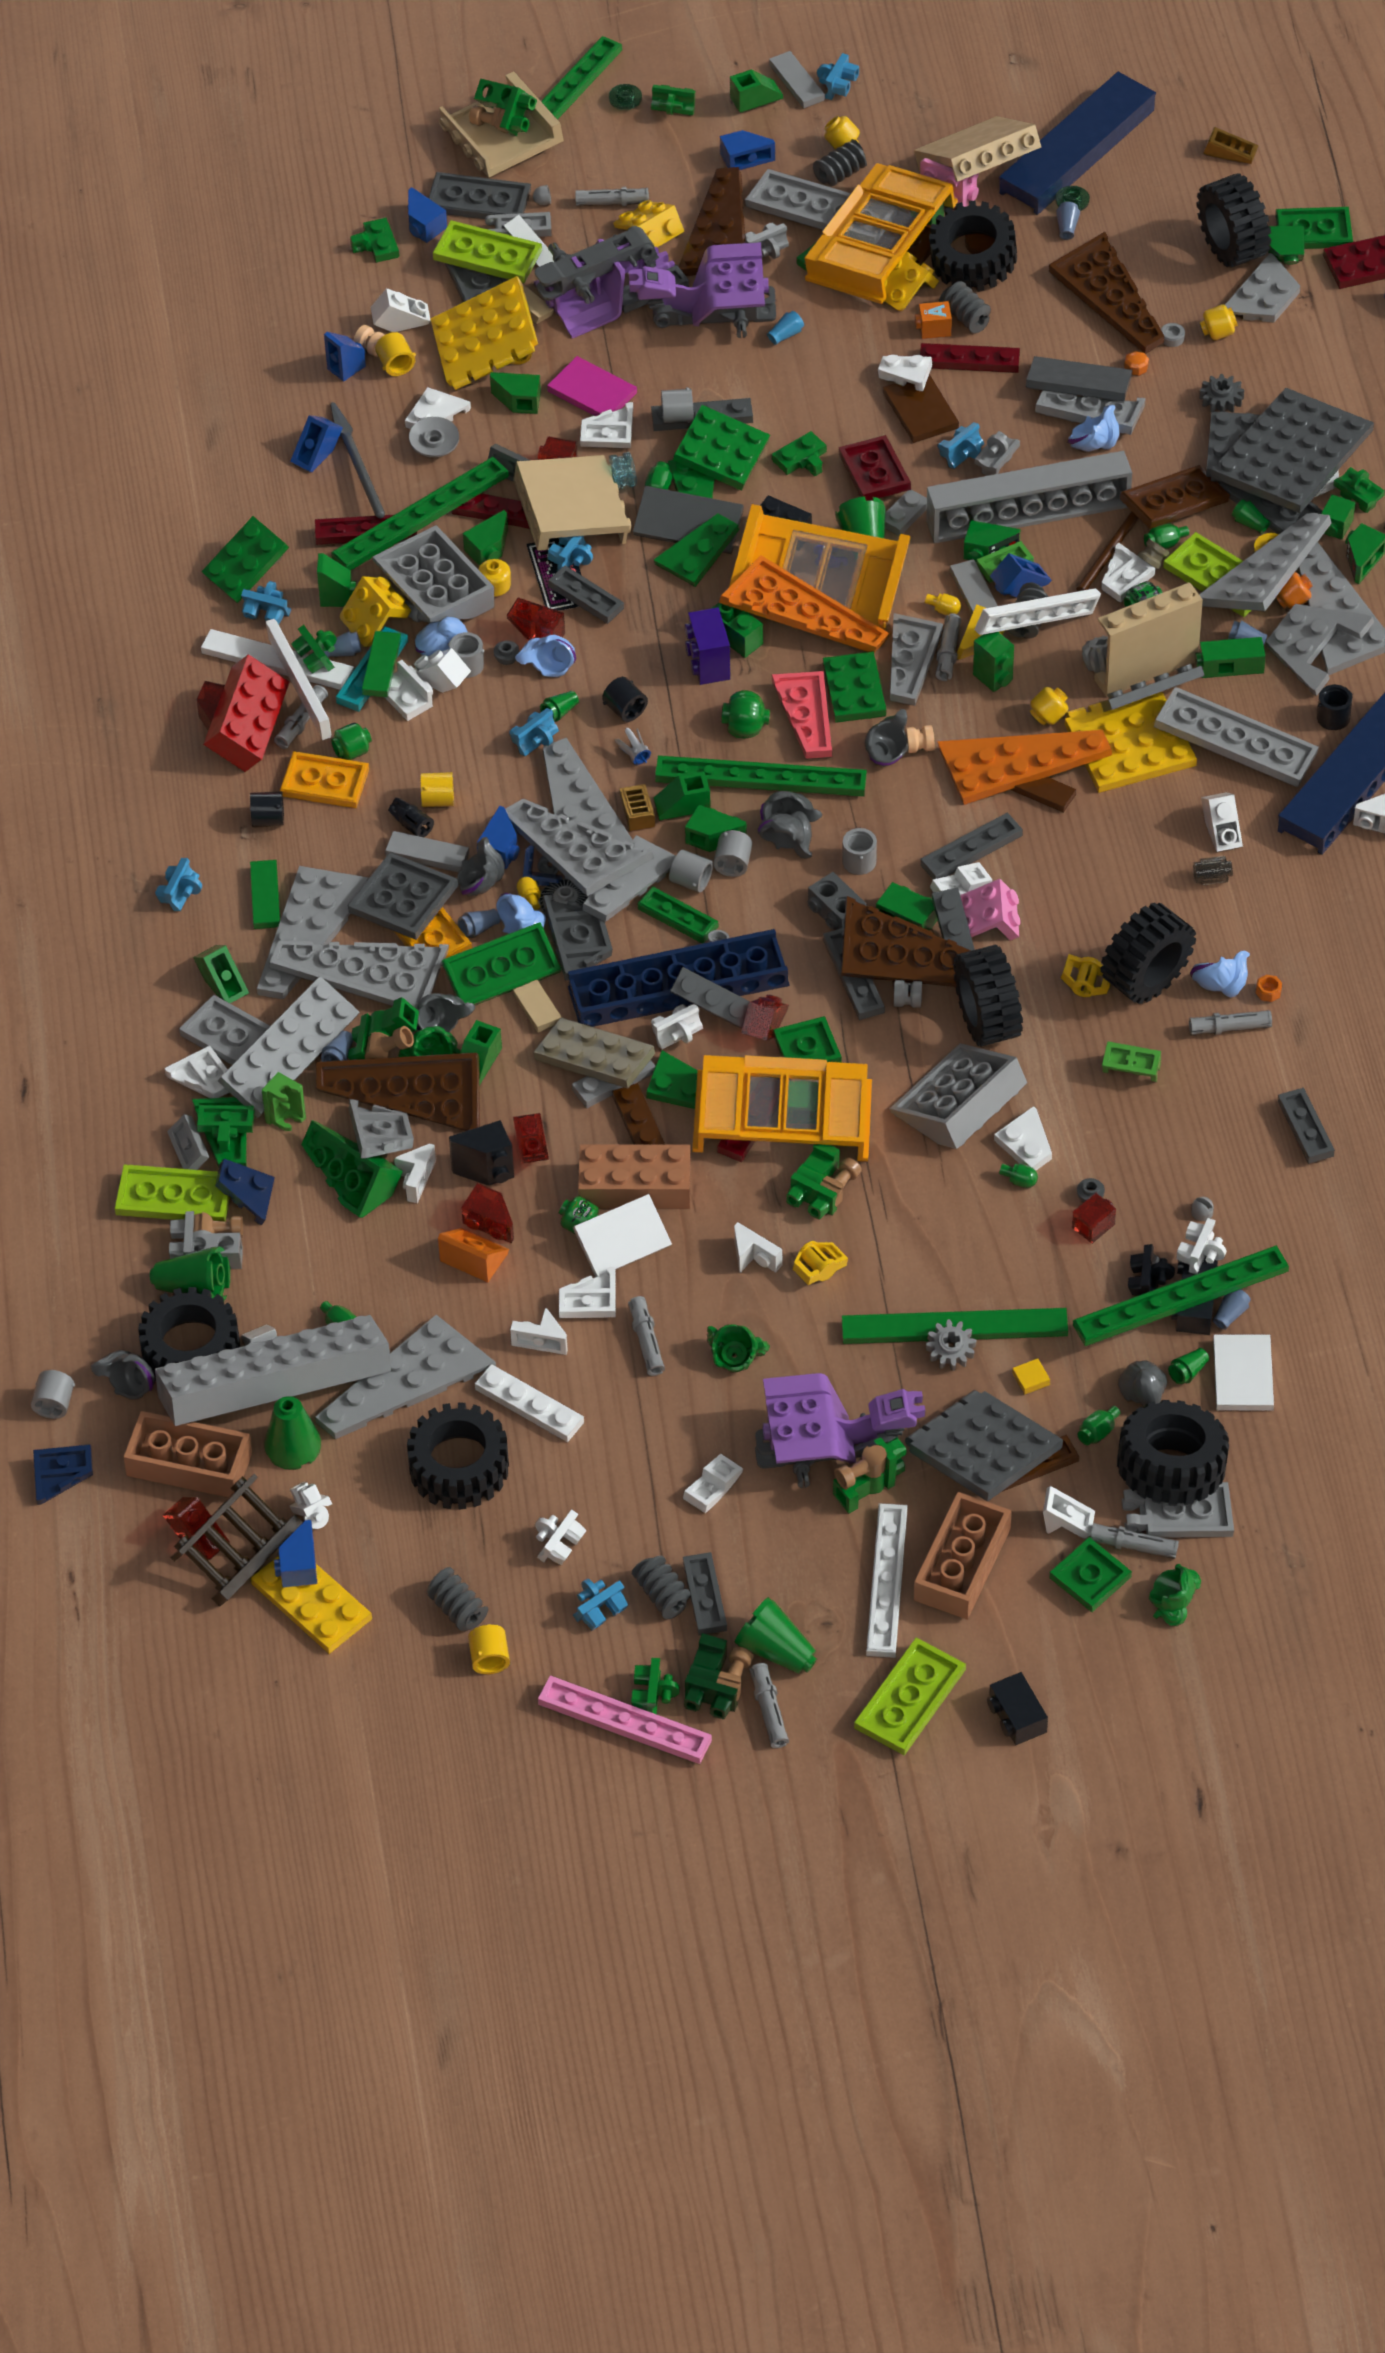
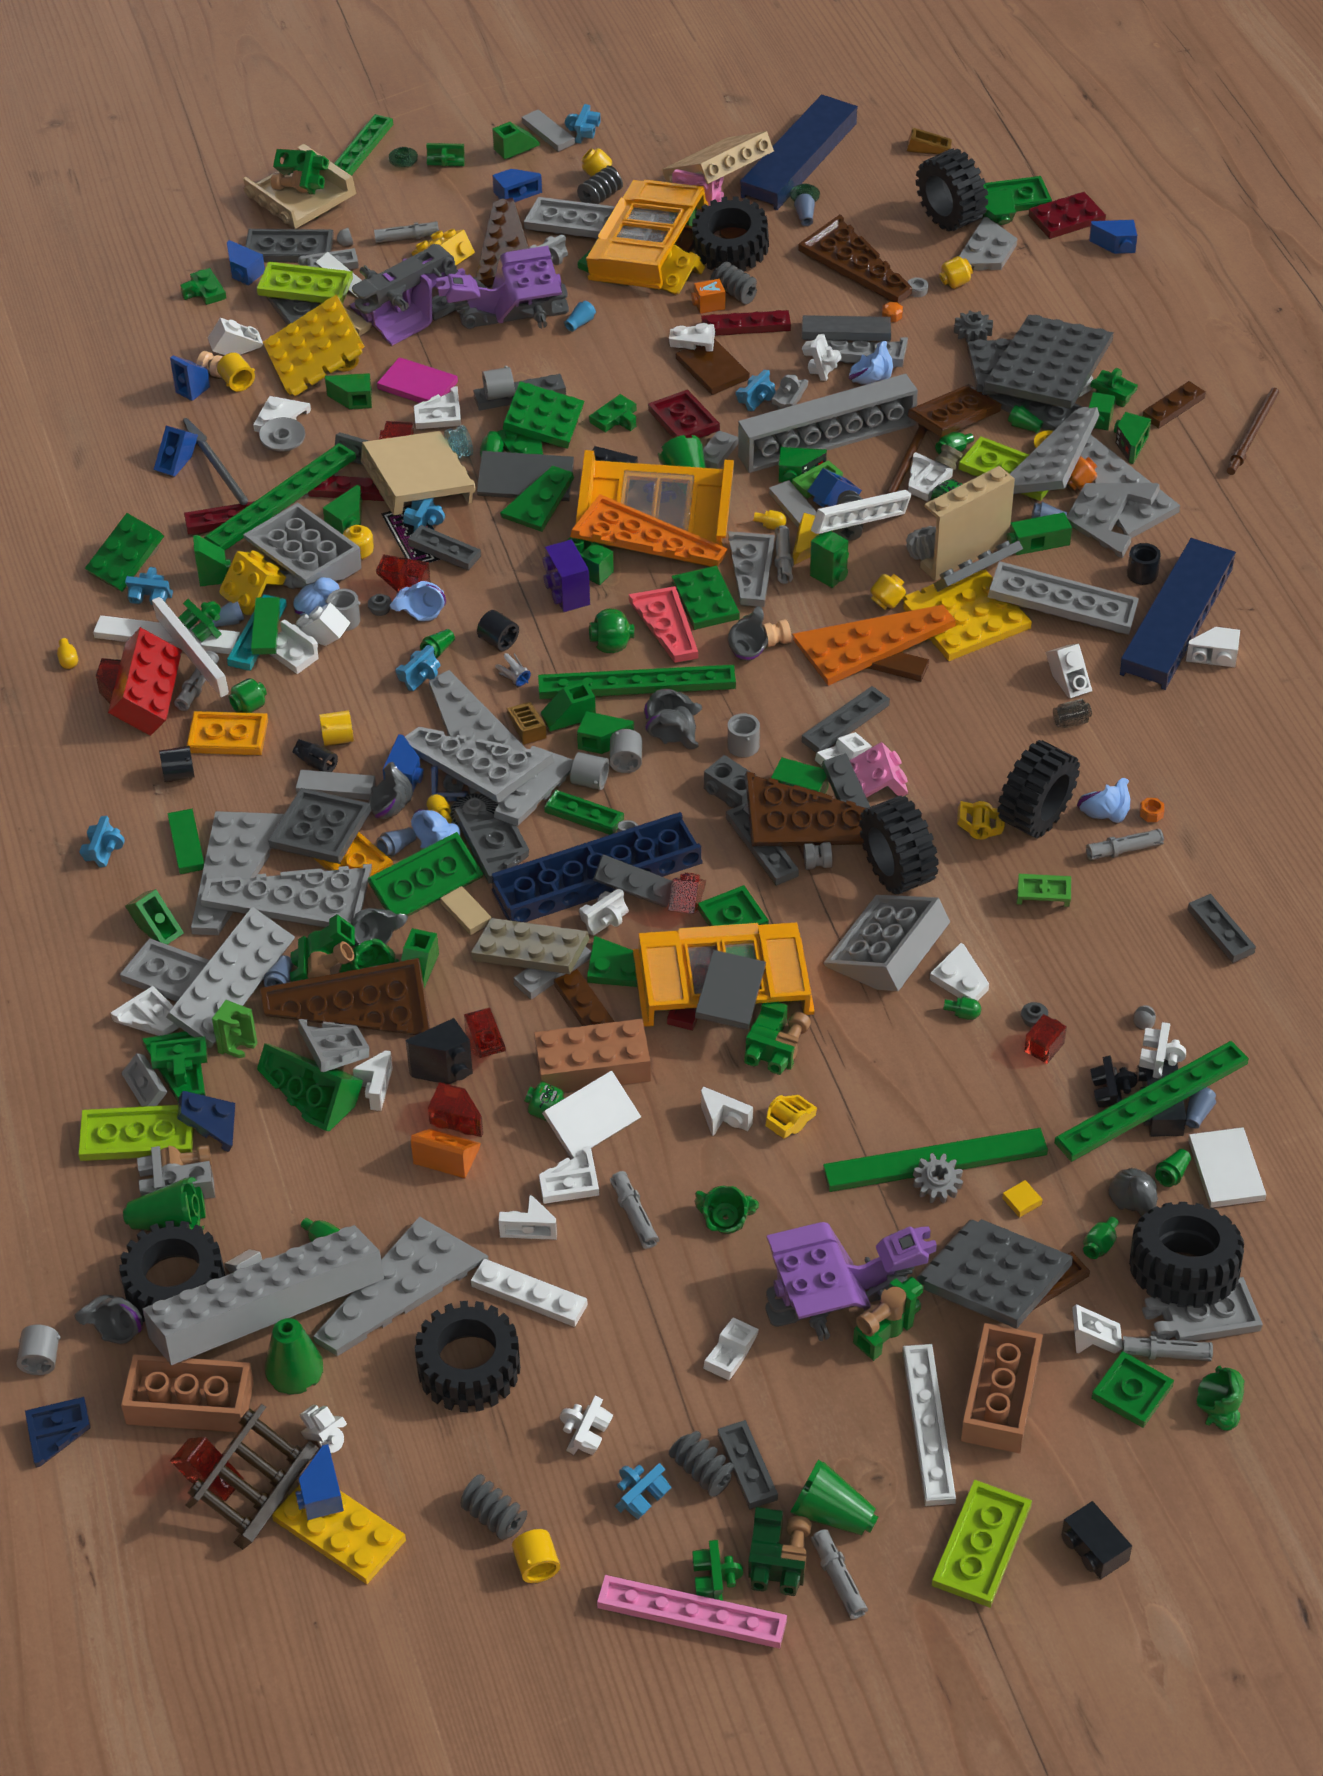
camera: 10 degrees left, 5 degrees down
(170, 669) = (67, 654): none -> yellow cylinder
(783, 1126) = (730, 989): none -> dark grey tile
(1042, 414) = (824, 357): none -> white hips

